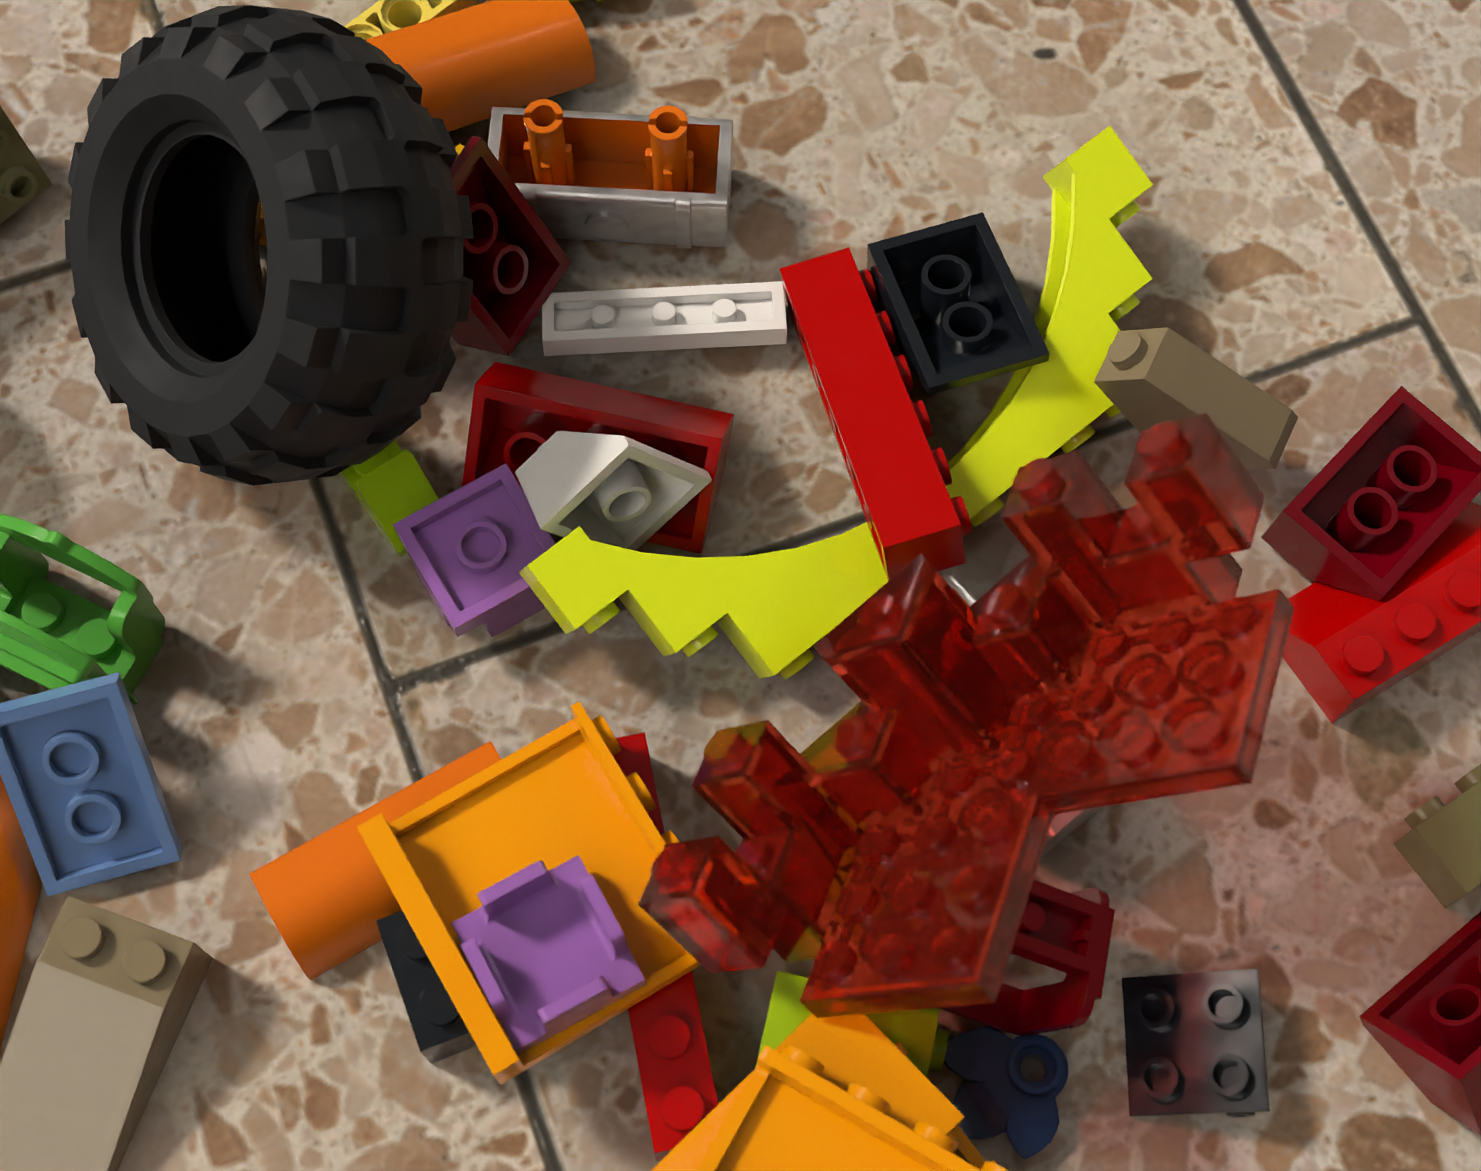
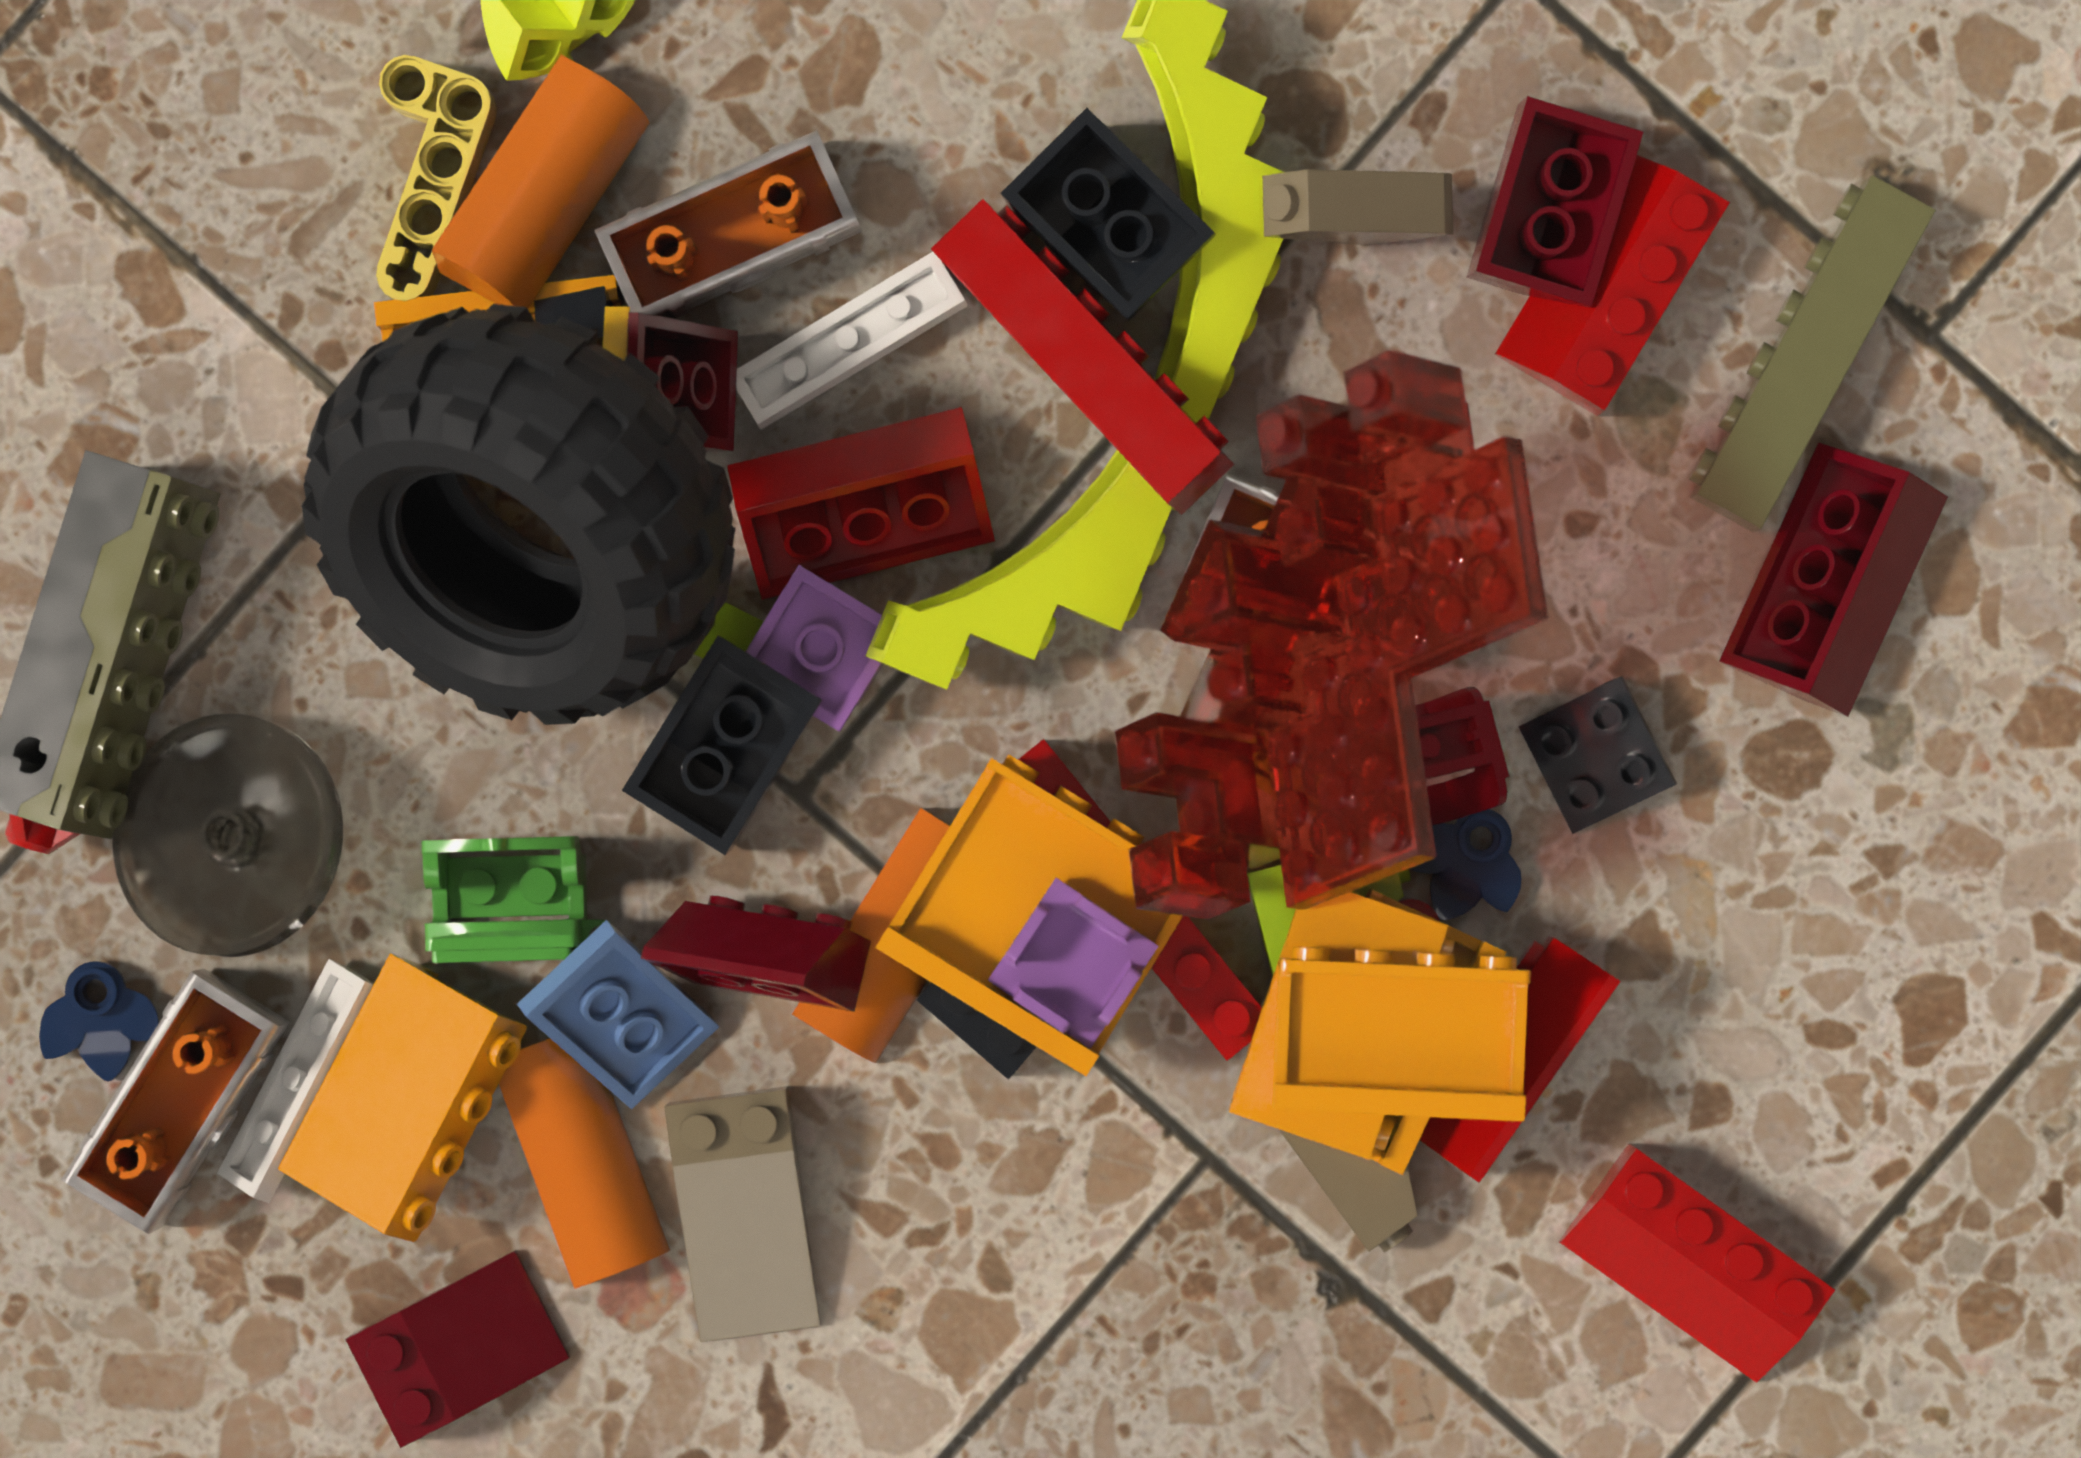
camera: 25 degrees left, 20 degrees up
(253, 795) = (762, 952): none -> dark red slope
(337, 590) = (722, 745): none -> black slope
(607, 487) = (893, 545): white slope -> none

